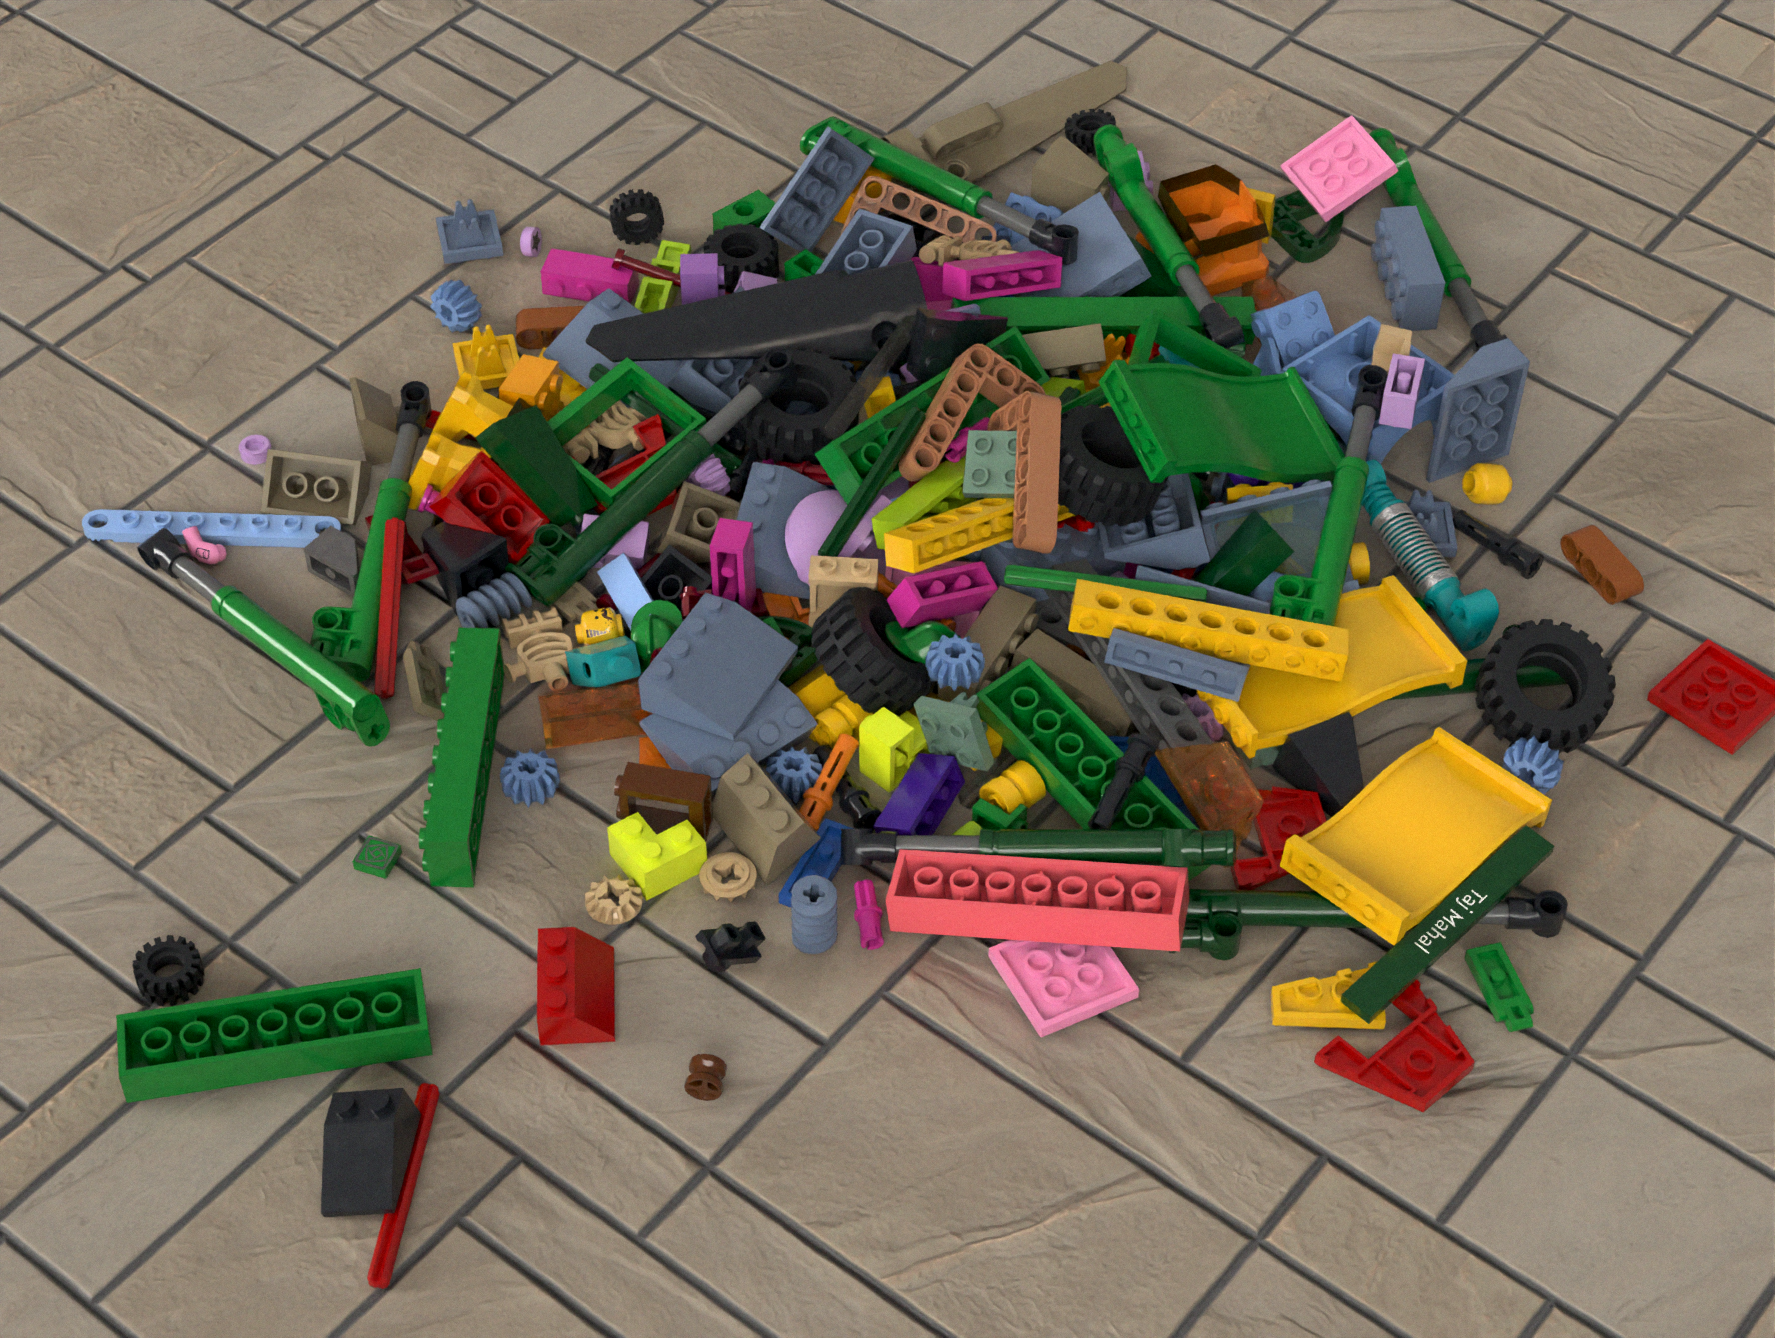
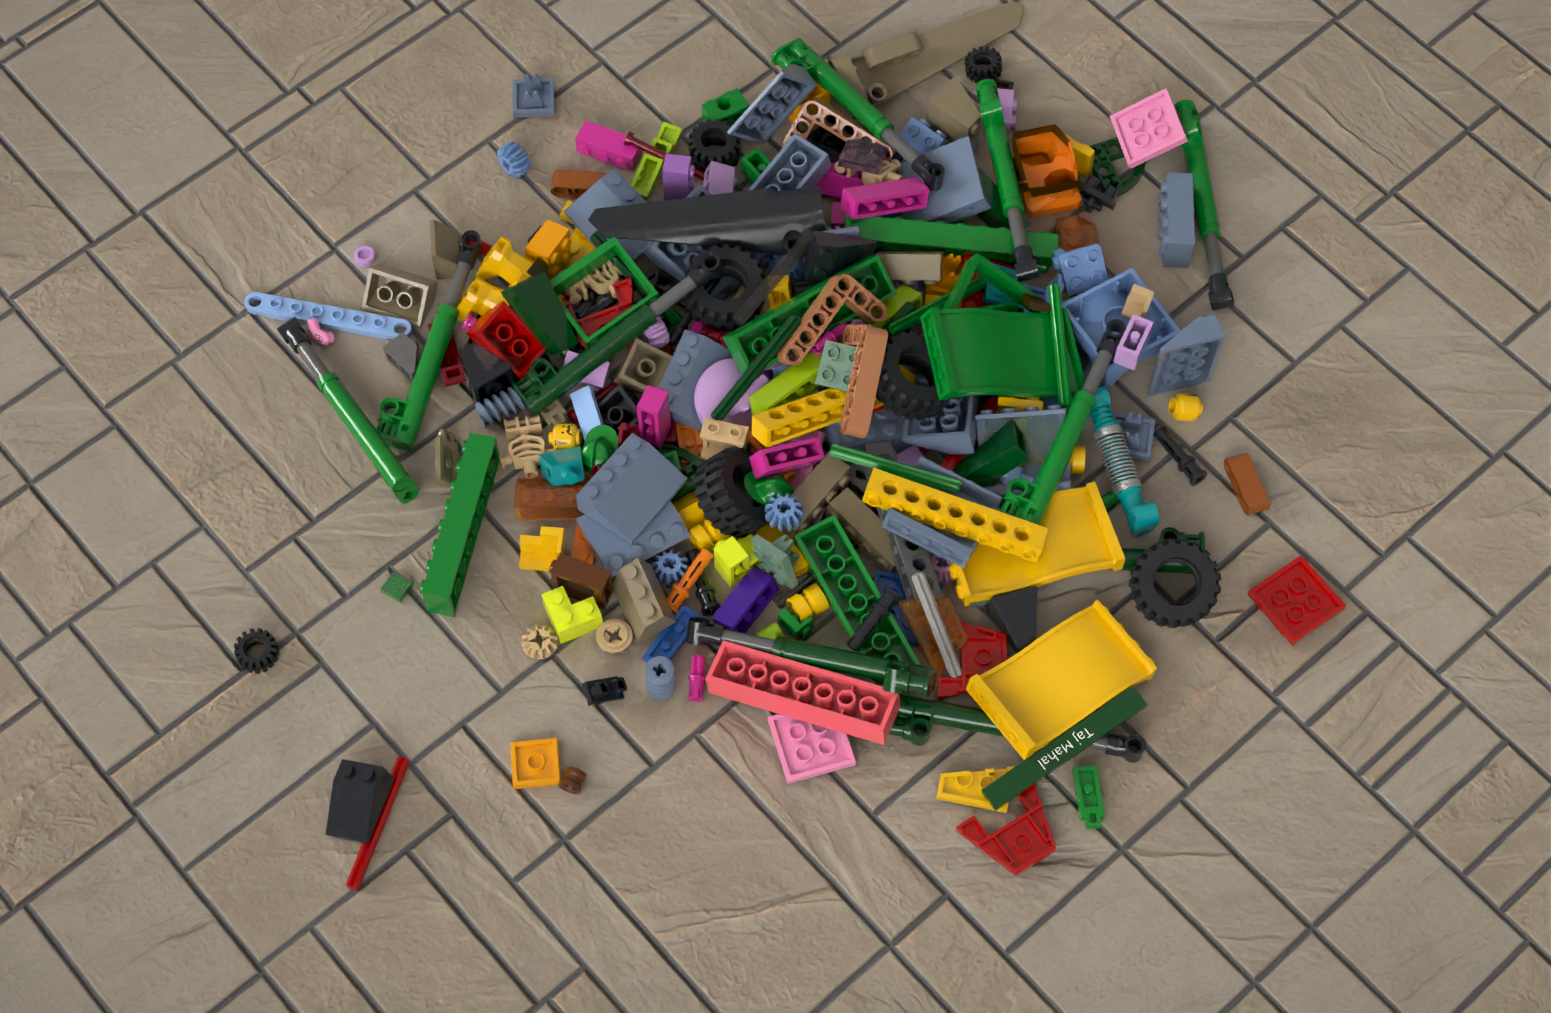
camera: 10 degrees right, 15 degrees up
(272, 1035) = (313, 710): green brick -> none
(389, 608) = (431, 402): red axle -> none
(486, 356) = (528, 207): yellow plate -> none
(529, 777) = (495, 550): medium blue gear -> none
(531, 241) = (574, 108): lavender tile -> none
(574, 987) = (503, 703): red slope -> none
(590, 779) = (541, 550): none -> yellow panel
(636, 230) = (649, 100): black tyre -> none
(641, 1065) = (535, 763): none -> light orange tile
(960, 237) = (863, 156): none -> plate
(1218, 778) = (937, 624): none -> light grey axle
(1250, 365) = (1036, 303): none -> dark brown tile
(1290, 260) = (1090, 189): none -> black hips
(1297, 410) = (1059, 344): none -> green axle
(1534, 763) = (1153, 638): medium blue gear -> none

